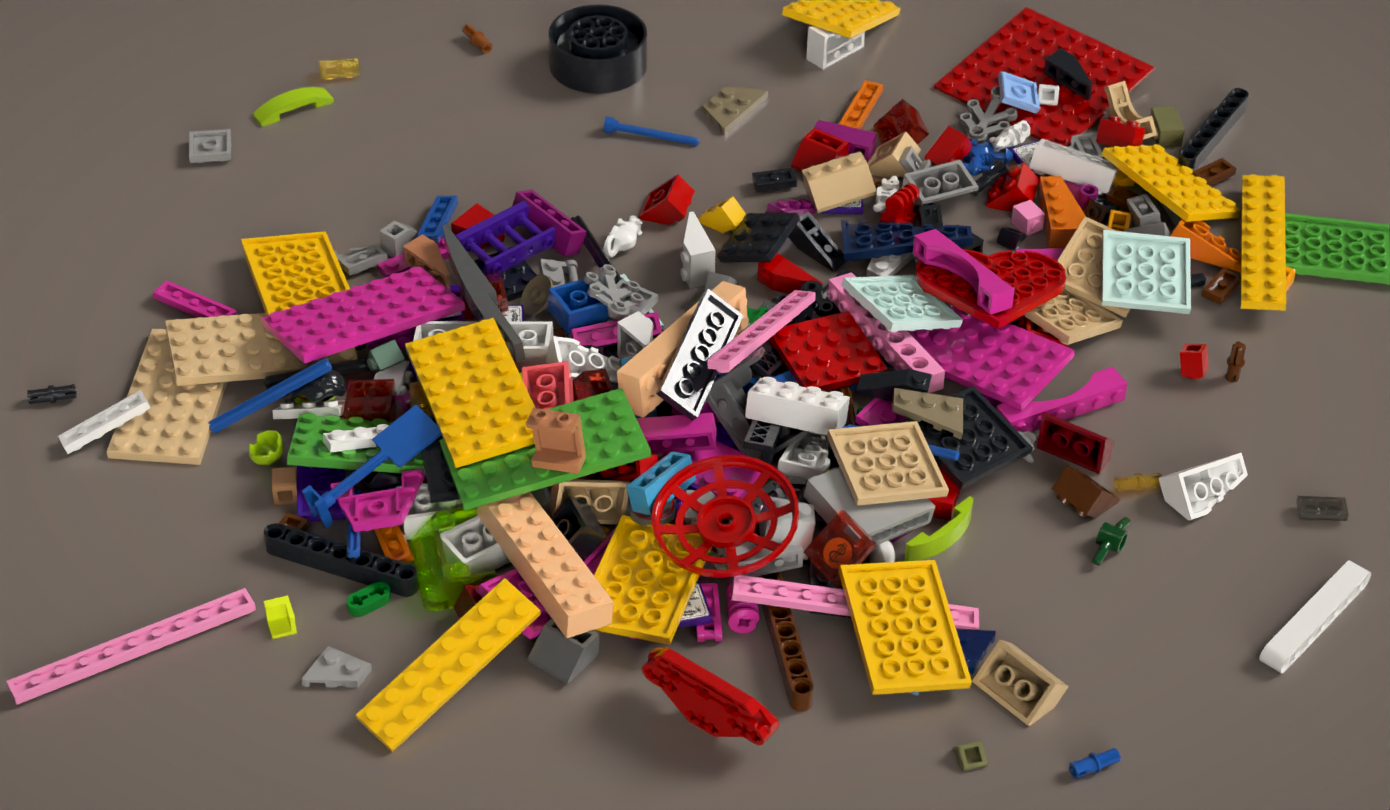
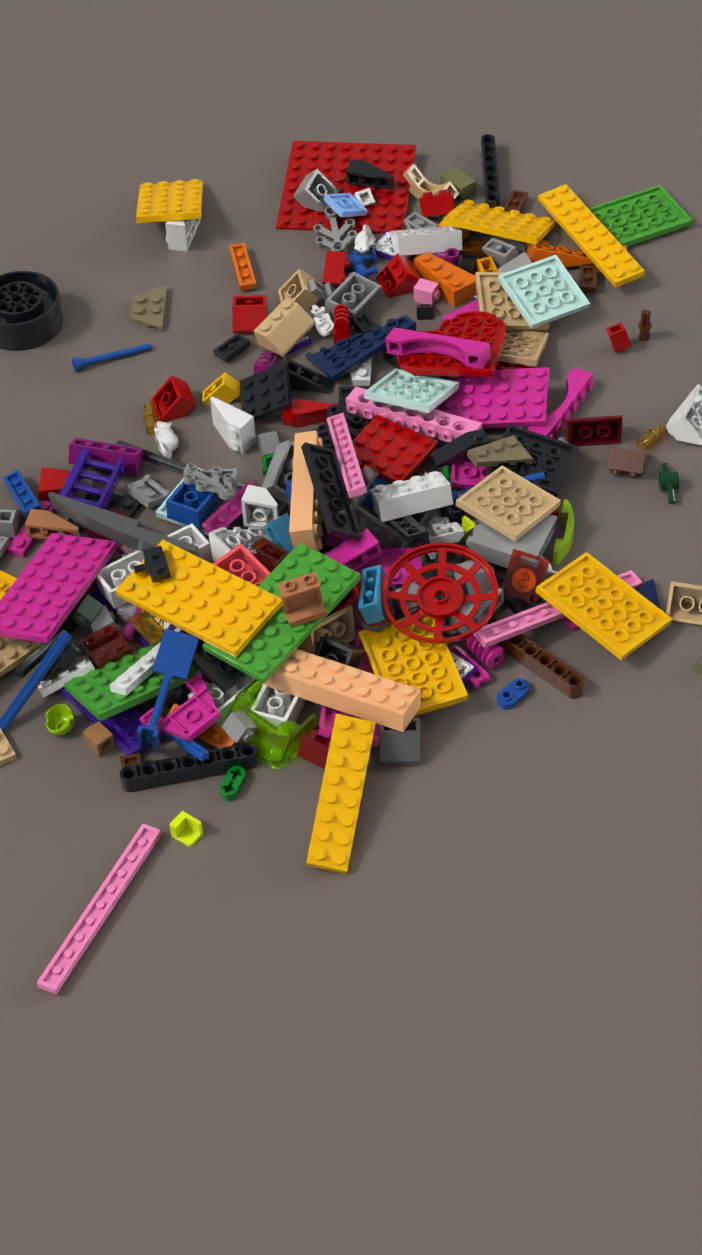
camera: 30 degrees left, 5 degrees up
(337, 669) = (258, 842): light grey wing -> none
(415, 544) = (239, 727): none -> light grey brick
(458, 336) = (154, 564): none -> black plate
(536, 295) = (142, 508): dark tan dish -> none
(630, 207) = (150, 417): none -> clear yellow pin
(708, 699) = (529, 719): red connector -> none
(733, 667) = (515, 691): none -> blue plate
(858, 139) = (265, 288): magenta brick -> none
(901, 119) = (282, 266): clear red slope -> none
(988, 178) = (380, 273): black pin -> none
(1002, 58) = (313, 189): none -> light grey slope

